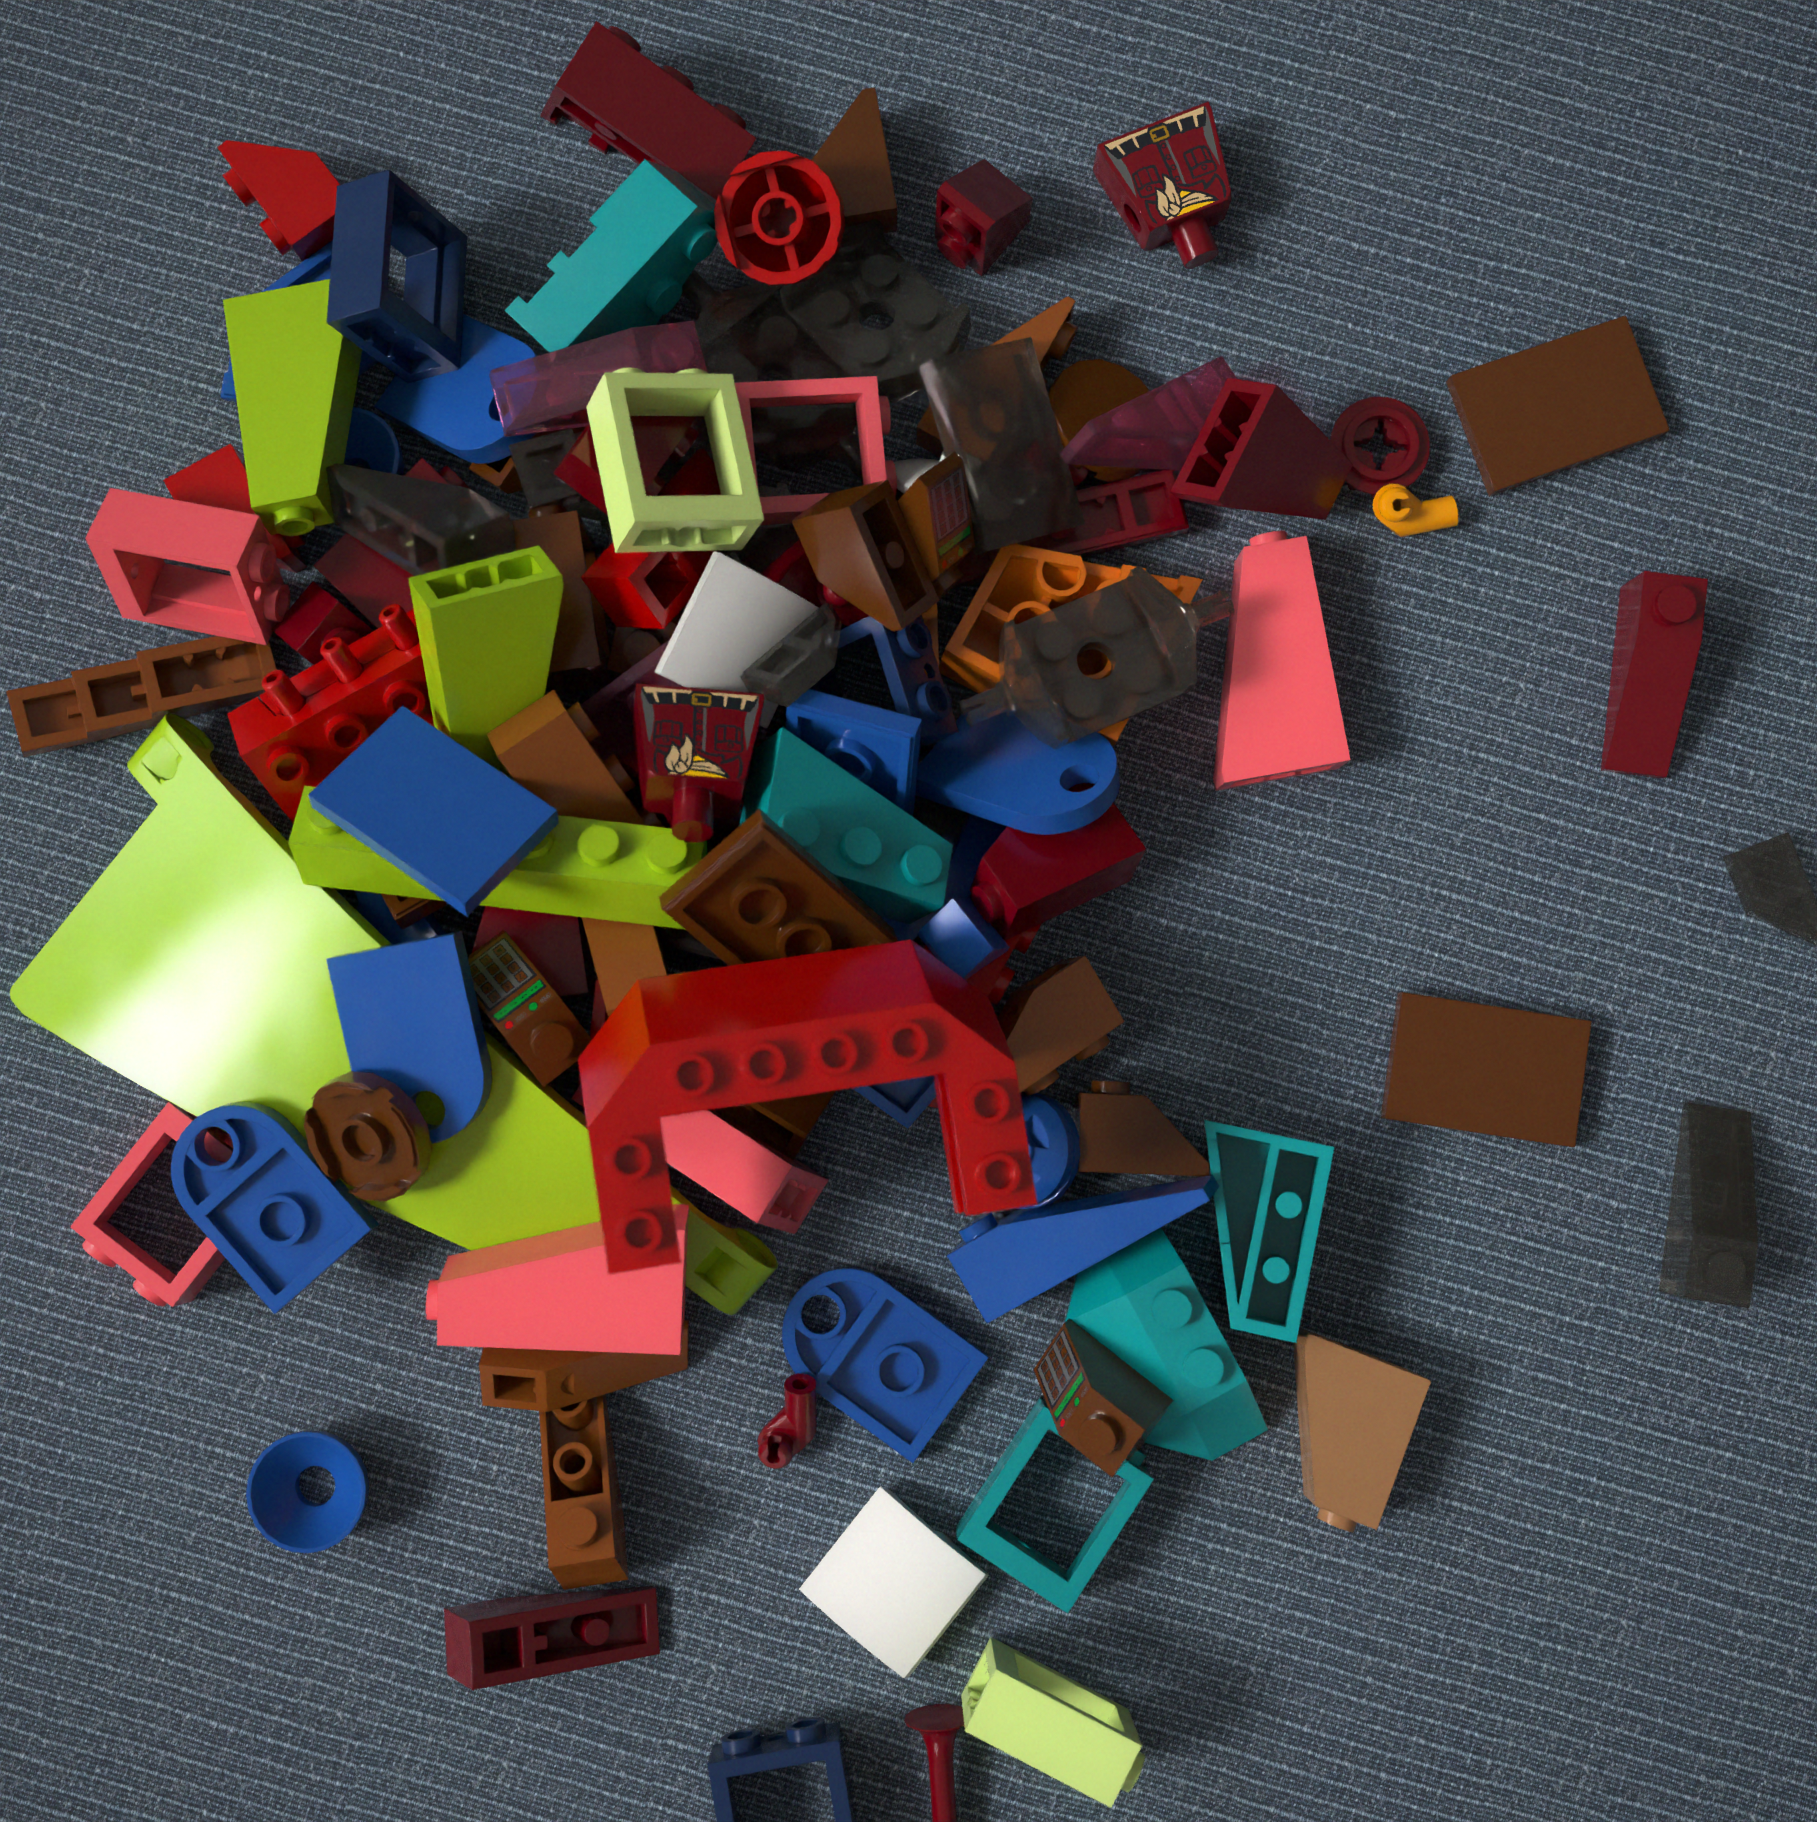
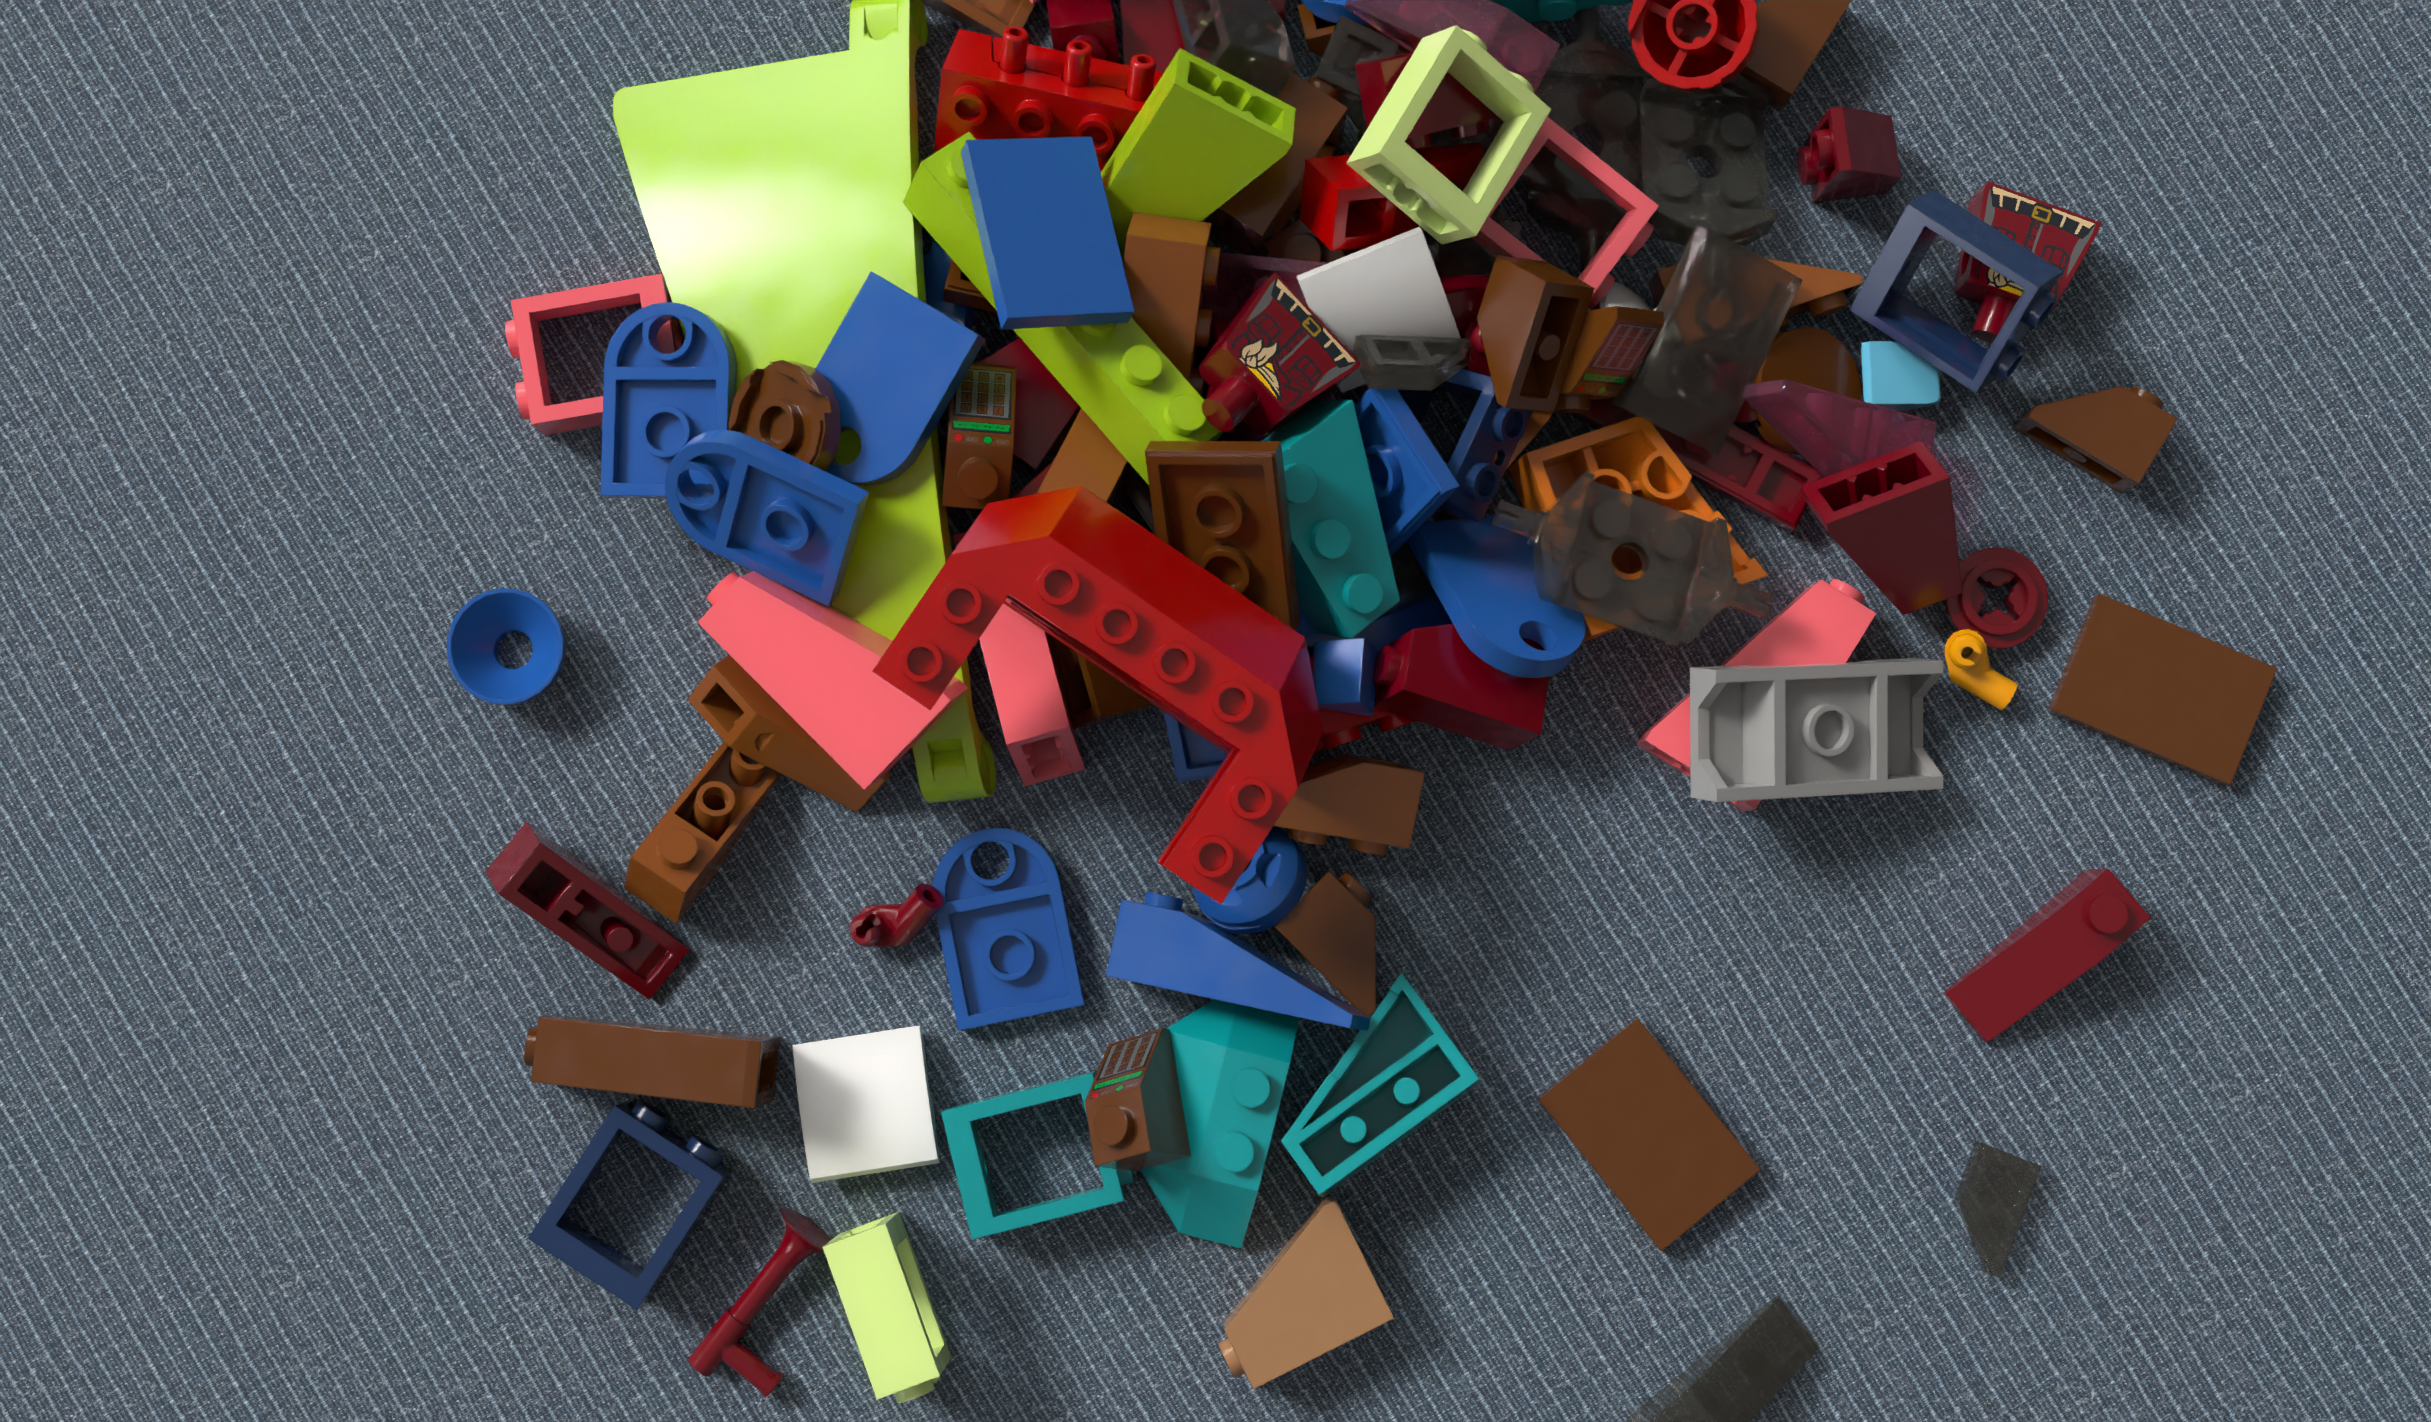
camera: 45 degrees right, 0 degrees up
(413, 1213) = (767, 511): none -> blue tile
(707, 1699) = (654, 1060): none -> reddish brown slope
(1156, 297) = (1886, 307): none -> dark blue window
(1162, 344) = (1898, 377): none -> medium azure slope
(1338, 666) = (1810, 729): none -> light grey piece
(1349, 255) = (2102, 432): none -> reddish brown slope

